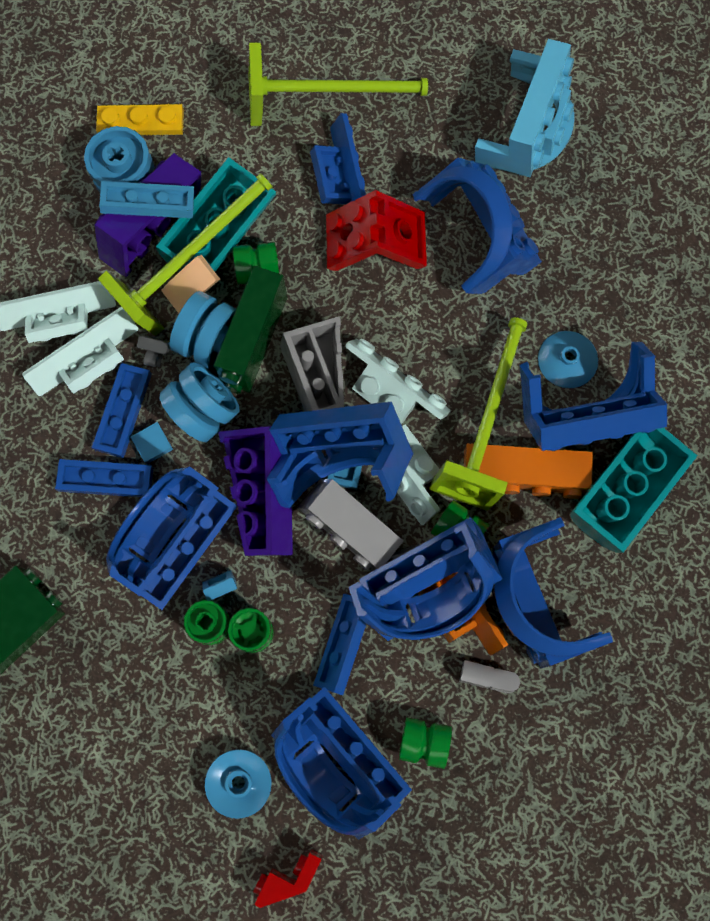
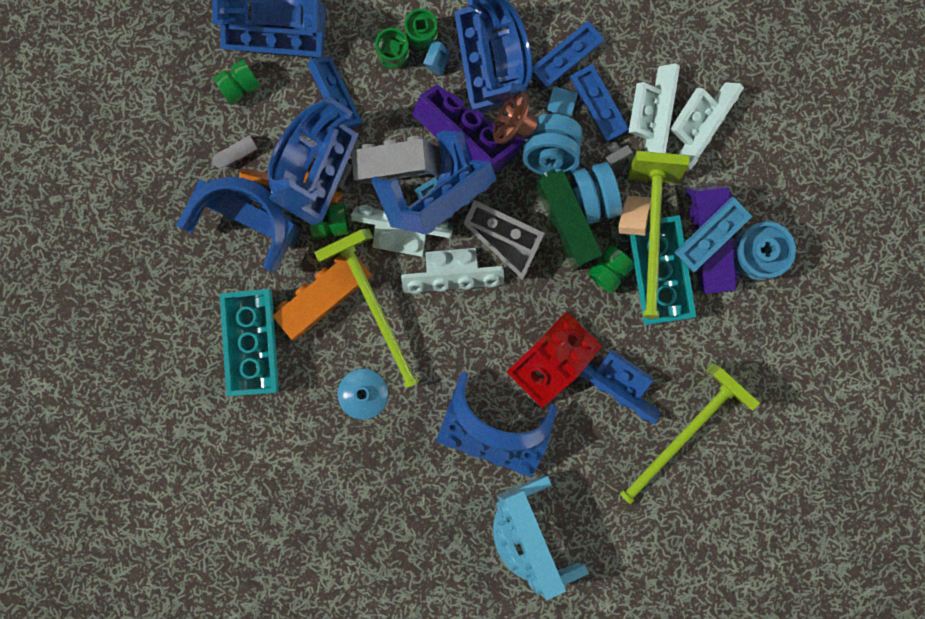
camera: 135 degrees right, 10 degrees up
(143, 119) = (786, 297): yellow plate -> none
(210, 446) = (518, 122): none -> copper wheel
(627, 411) = (299, 366): blue piece -> none

